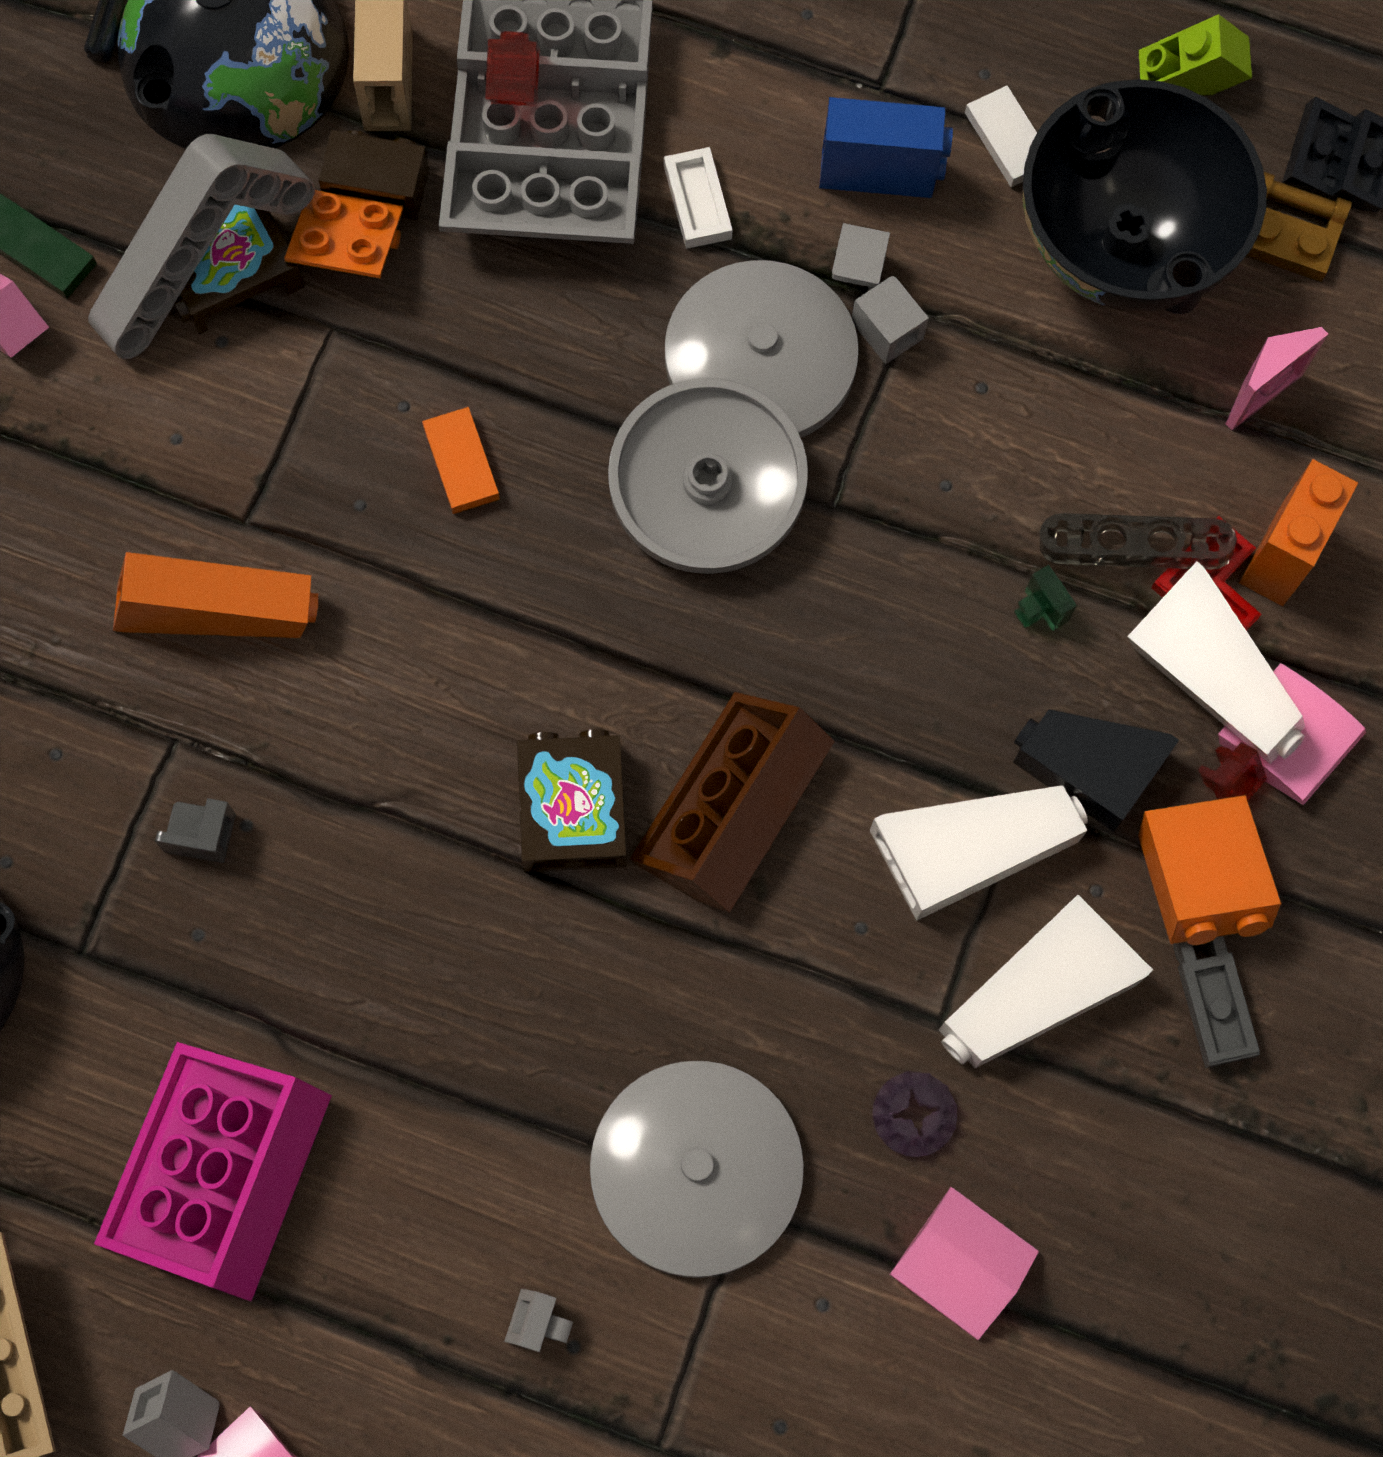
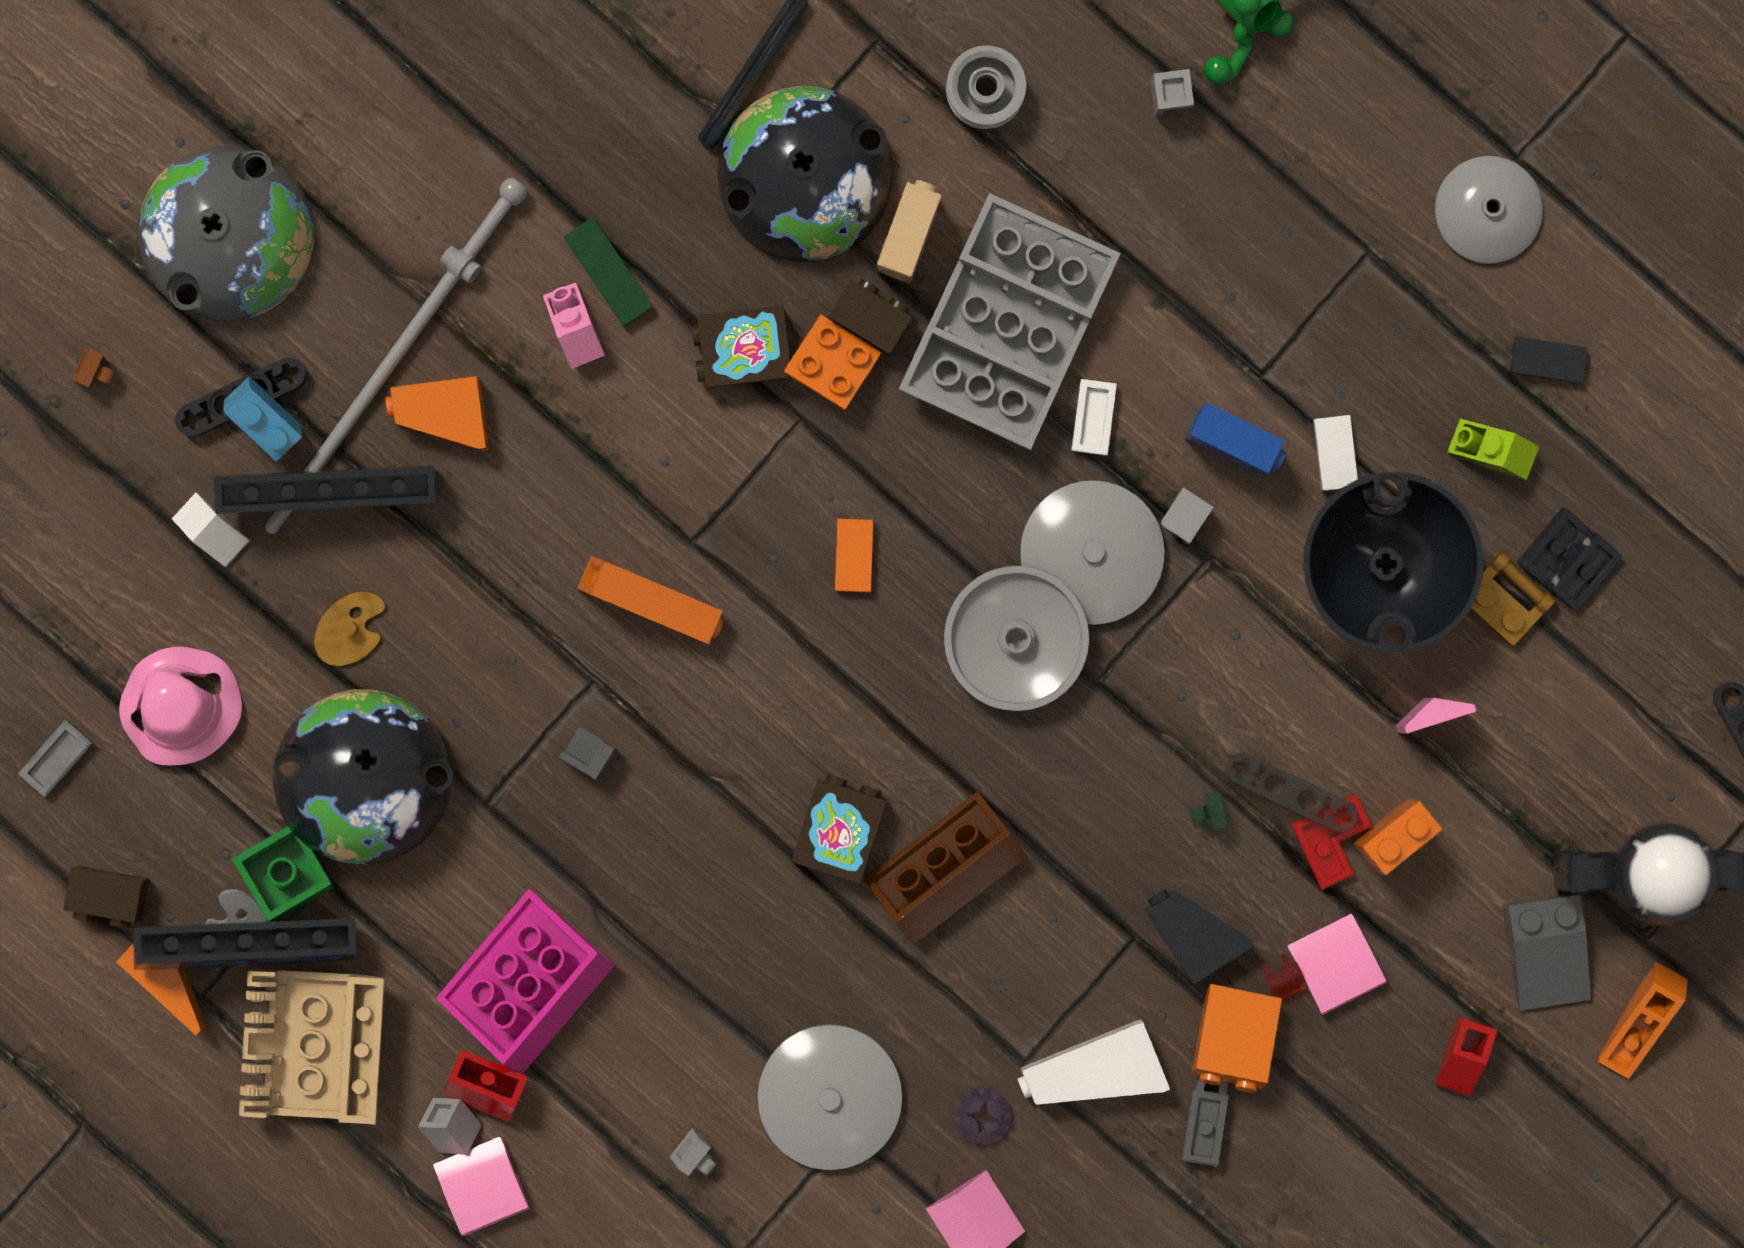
camera: 25 degrees right, 15 degrees up
(182, 225) = (725, 330): light grey beam -> none
(201, 1335) = (485, 1085): none -> red brick
(512, 70) = (993, 289): clear red brick -> none
(889, 319) = (1189, 566): light grey panel -> none
(971, 844) = (1091, 959): white slope -> none
(1215, 661) = (1303, 902): white slope -> none

